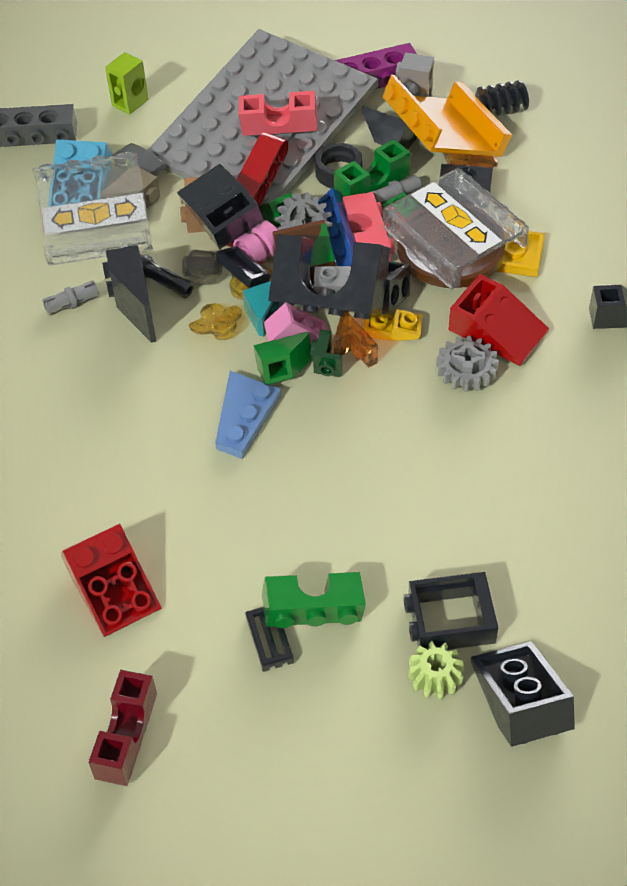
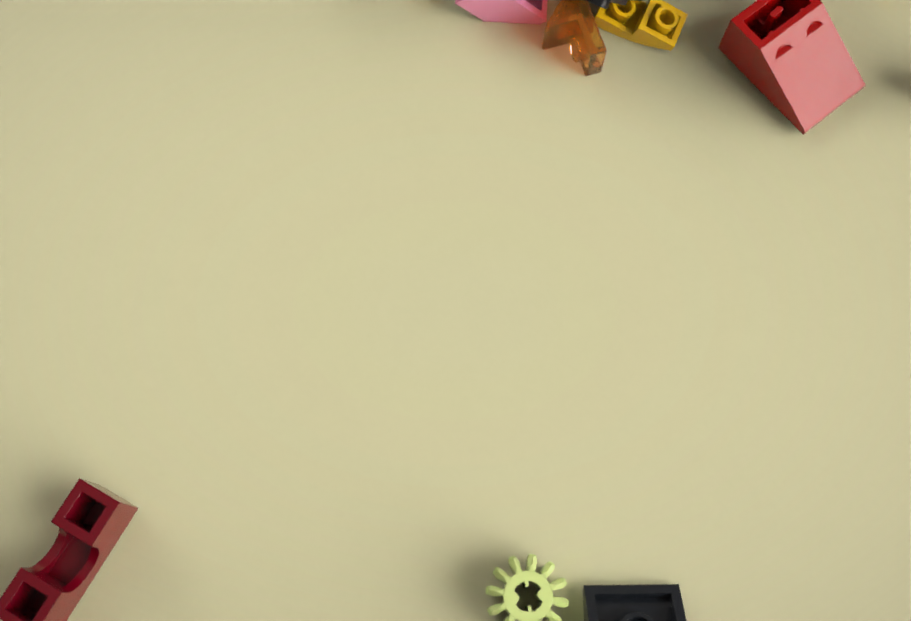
camera: 15 degrees right, 20 degrees up
(110, 580) = (125, 316): red slope -> none
(244, 413) = (390, 102): medium blue wing -> none
(276, 660) = (315, 505): black tile -> none
(282, 357) = (468, 31): green slope -> none
(289, 606) = (347, 435): green arch -> none
(323, 360) = (522, 48): dark green bracket -> none
(450, 588) = (626, 514): black window -> none
(467, 363) = (728, 112): light grey gear -> none

